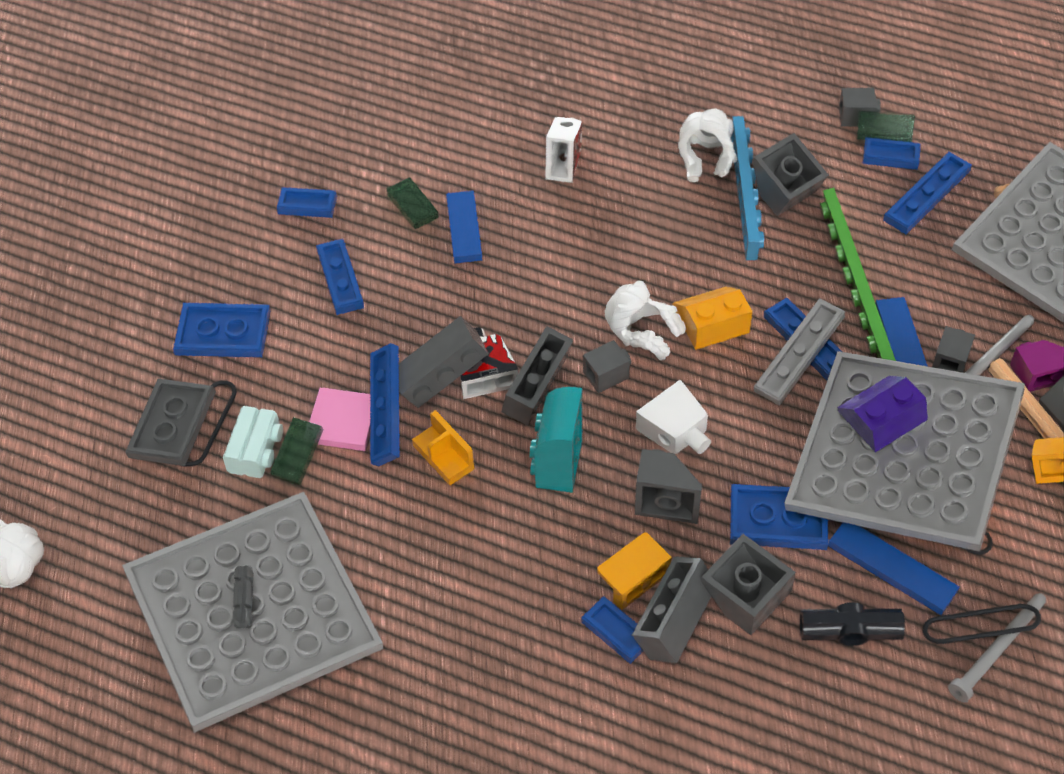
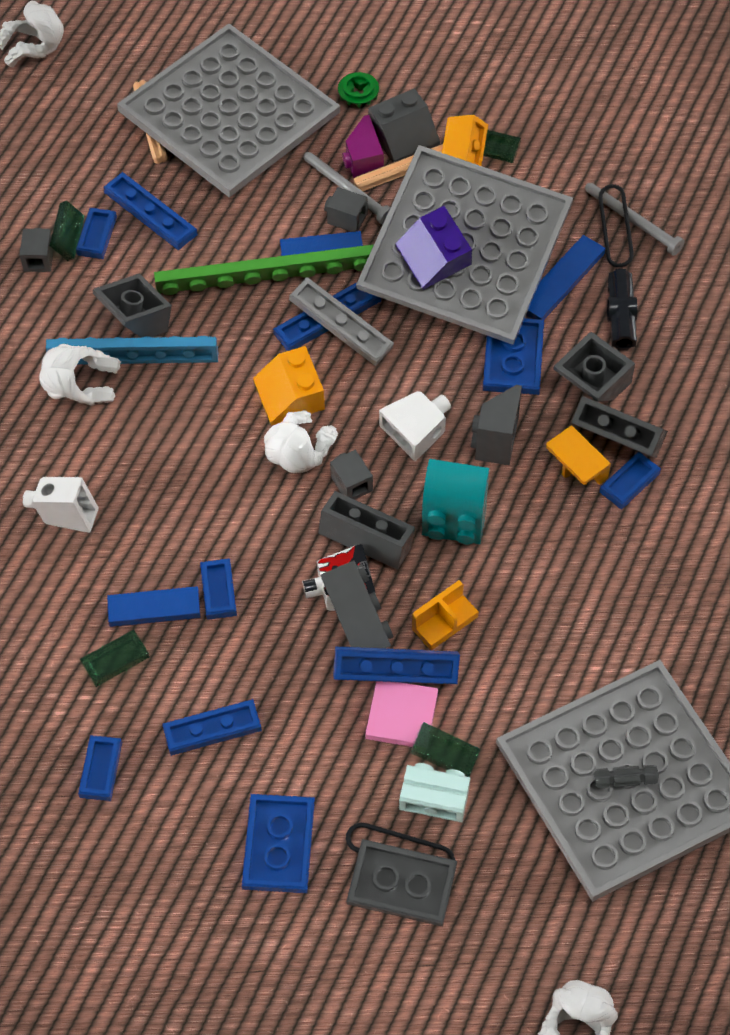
camera: 90 degrees left, 5 degrees up
(482, 272) = (218, 589): none -> blue tile

